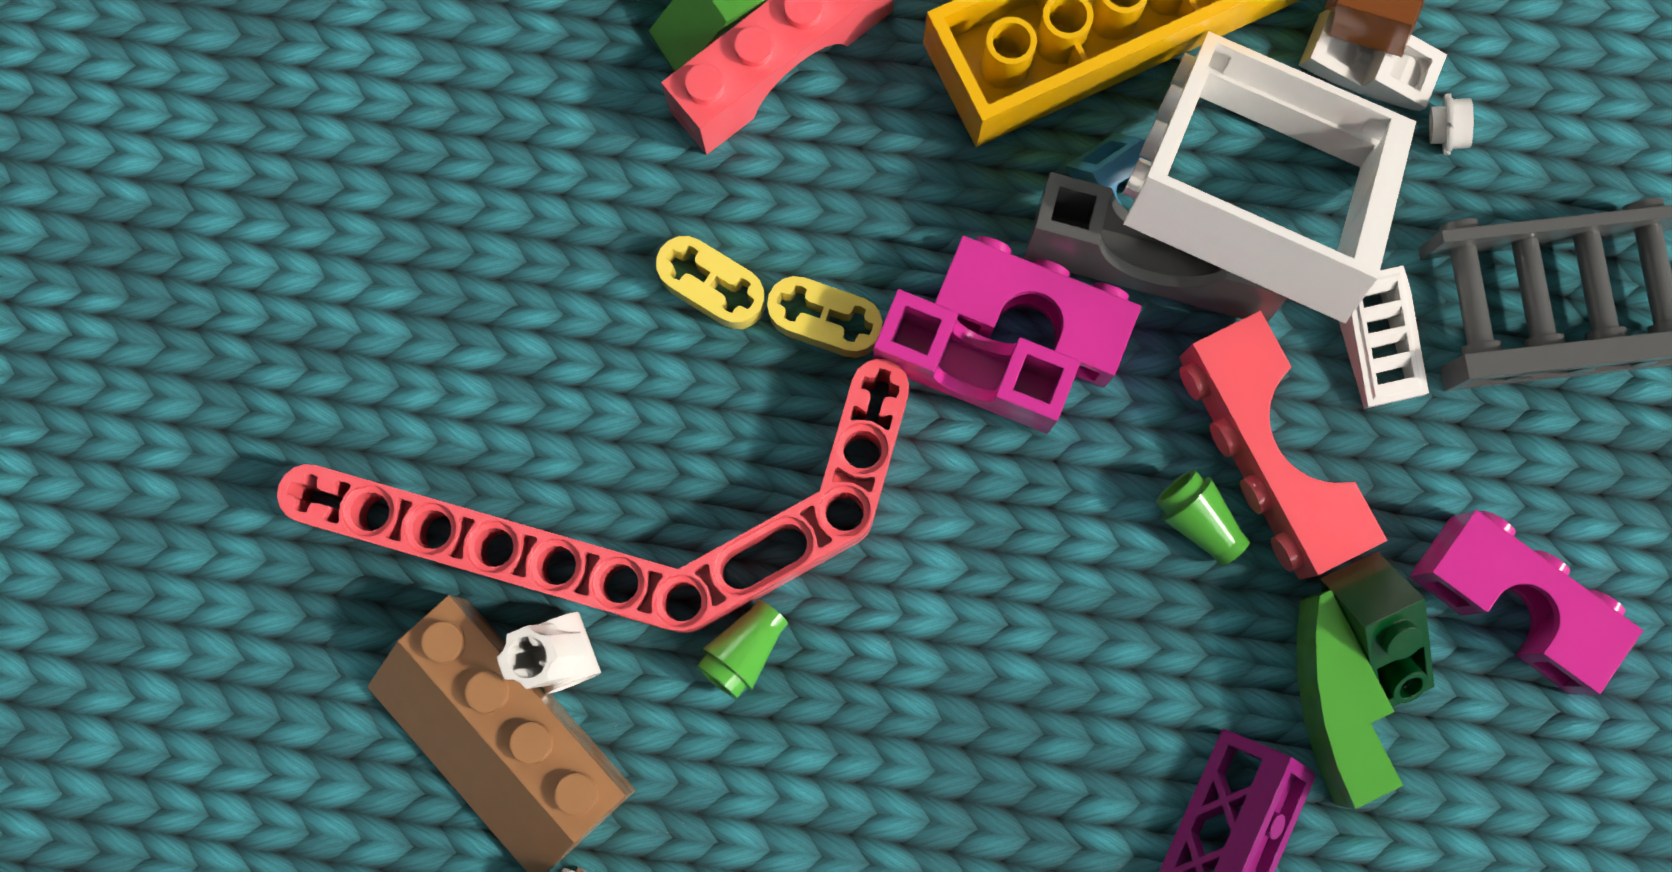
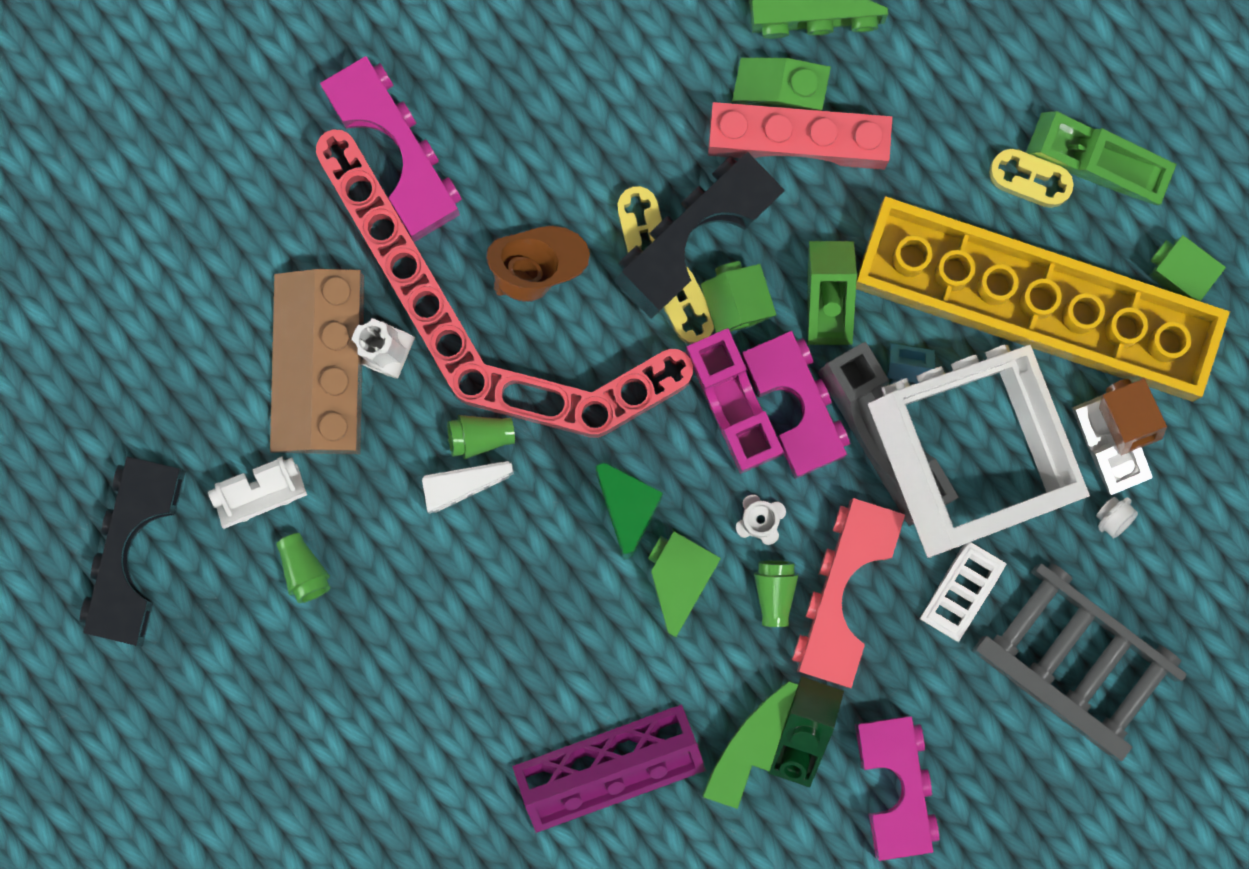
camera: 40 degrees right, 5 degrees up
(298, 420) = (363, 101): none -> dark pink arch
(631, 414) = (535, 261): none -> dark orange piece
(766, 732) = (454, 486): none -> white slope
(771, 297) = (736, 198): none -> black arch
(873, 255) = (738, 297): none -> bright green brick
(961, 165) = (831, 292): none -> bright green slope
(982, 573) = (629, 505): none -> green slope
(1096, 599) = (680, 577): none -> bright green slope
(1131, 463) = (768, 530): none -> white plate

